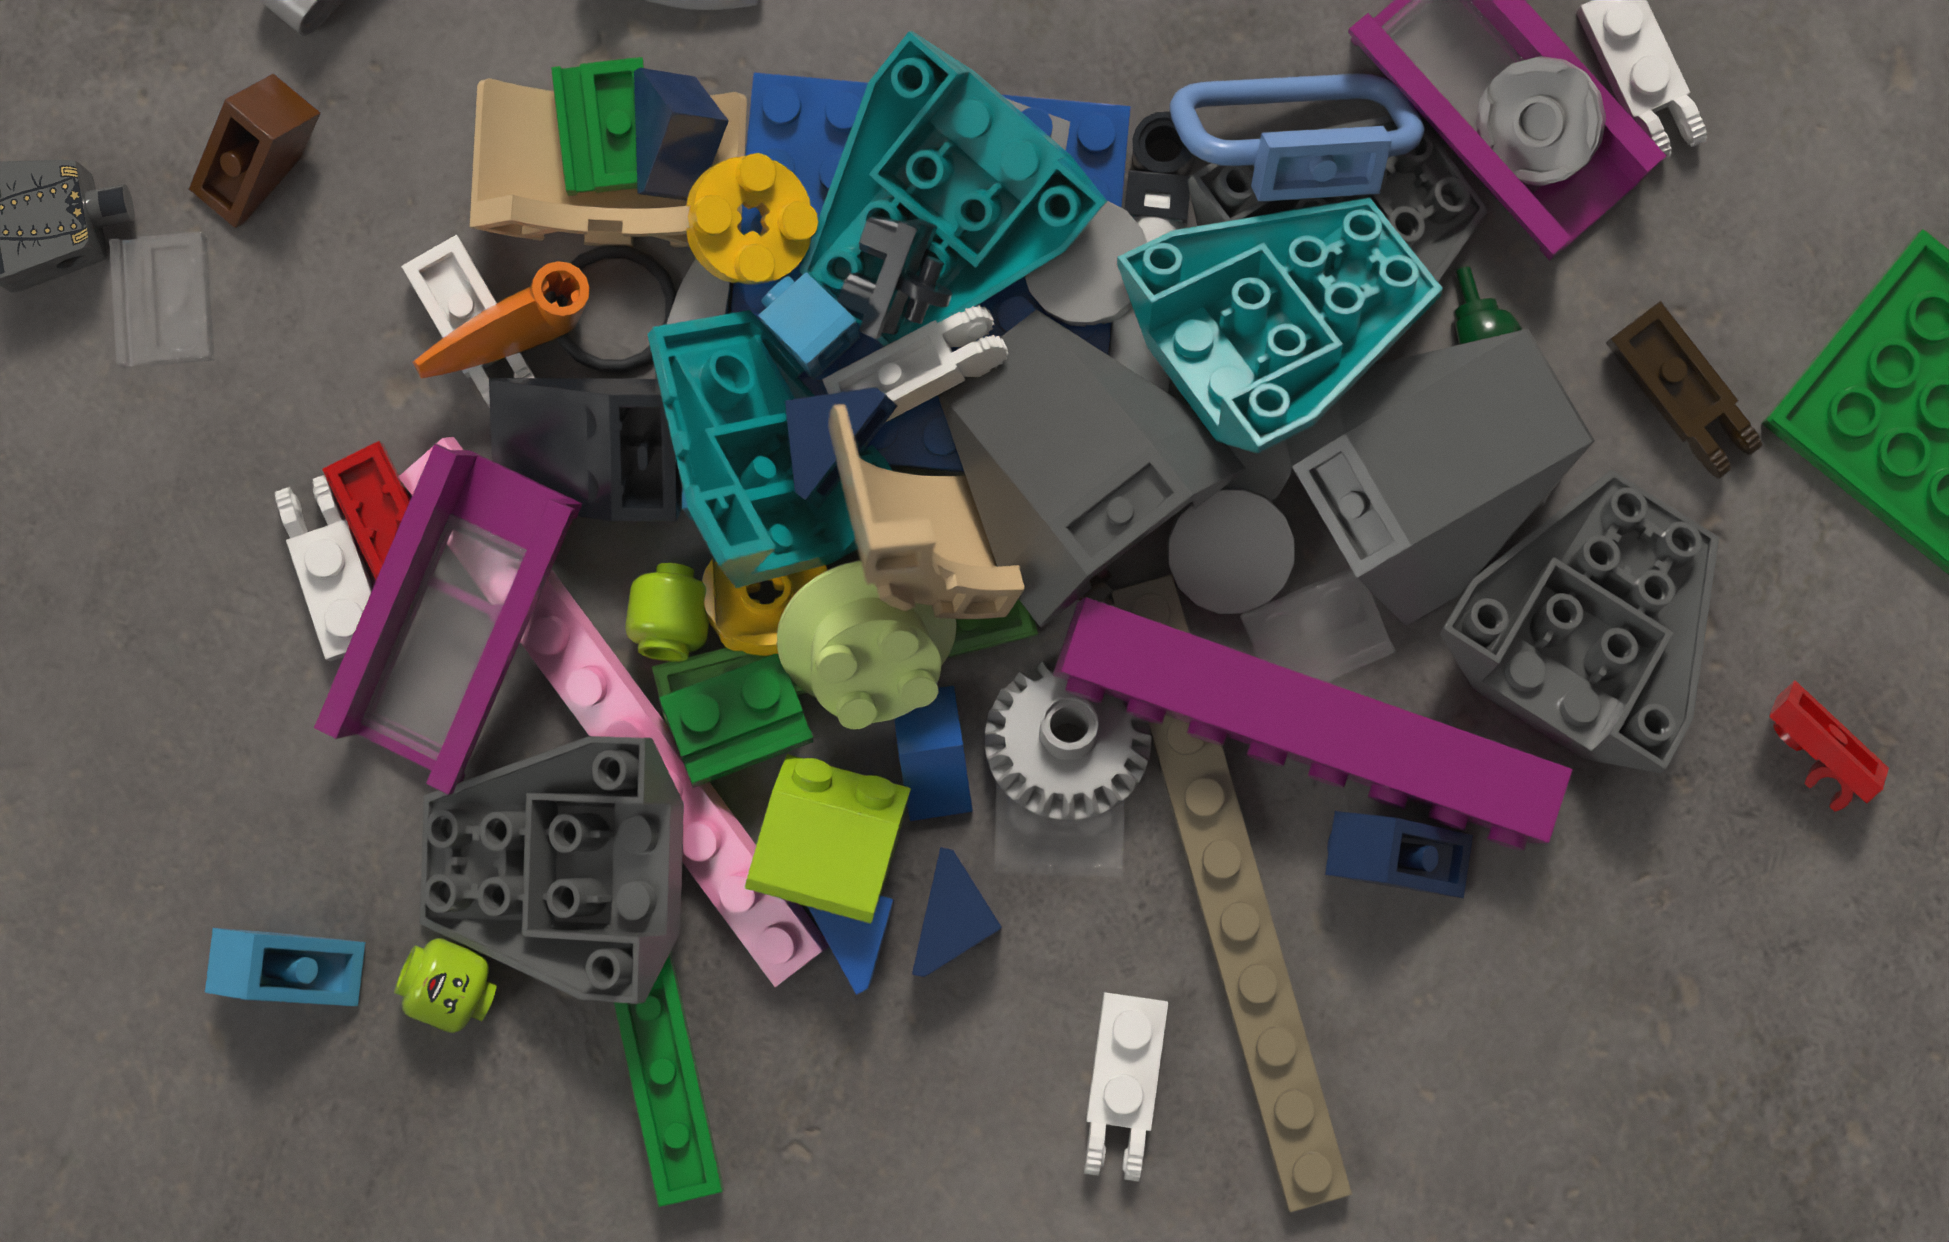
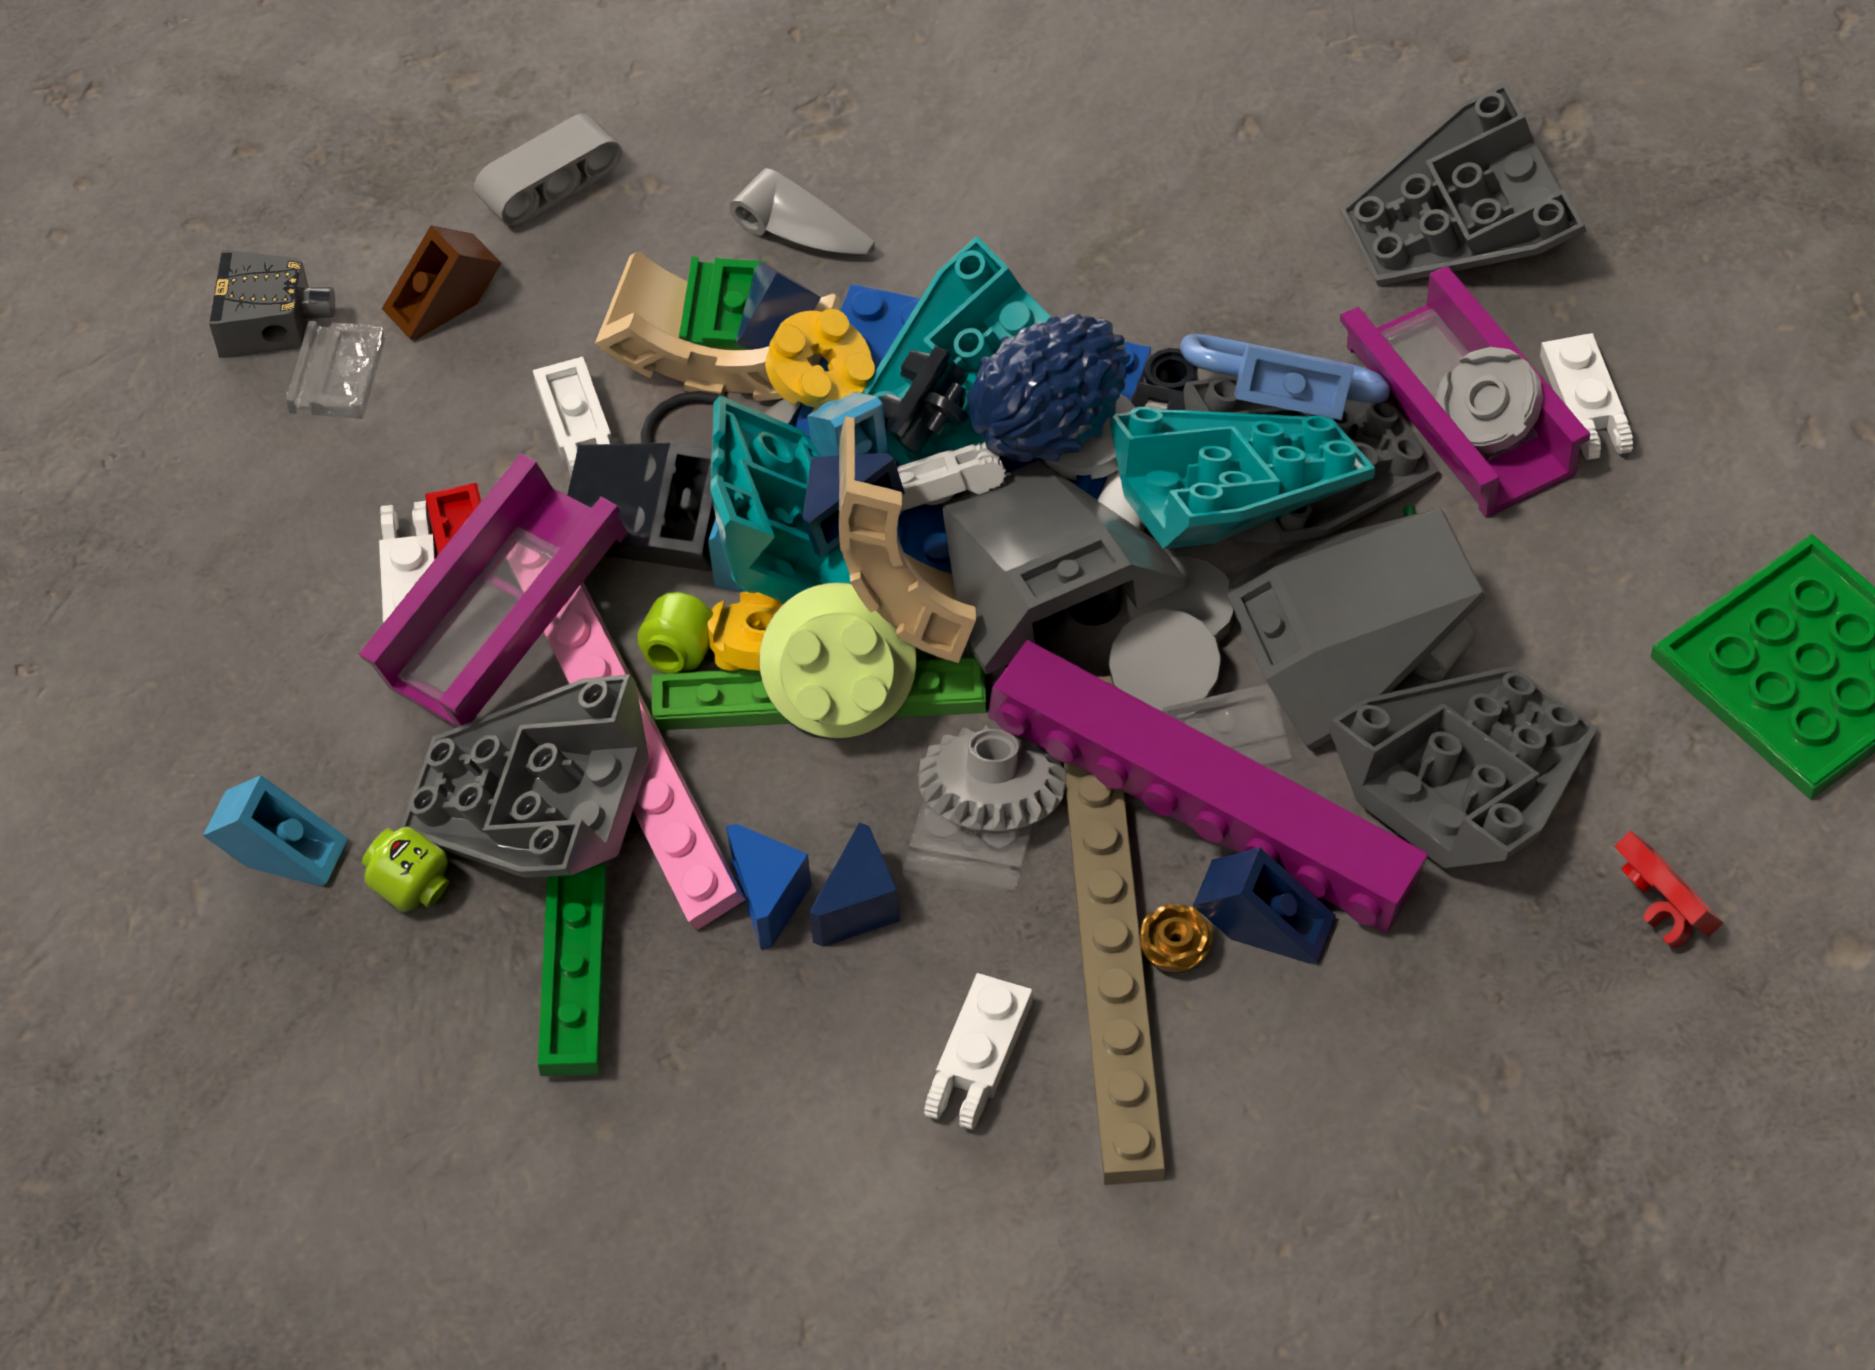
camera: 15 degrees right, 30 degrees down
(511, 324) = (613, 414): orange piece -> none
(736, 720) = (711, 710): green plate -> none
(828, 838) = (767, 795): lime slope -> none
(934, 759) = (871, 779): blue slope -> none
(1043, 248) = (1049, 388): none -> dark blue hair
(1330, 911) = (1175, 922): none -> pearl gold plate
(1683, 386) = (1583, 612): dark brown hinge -> none

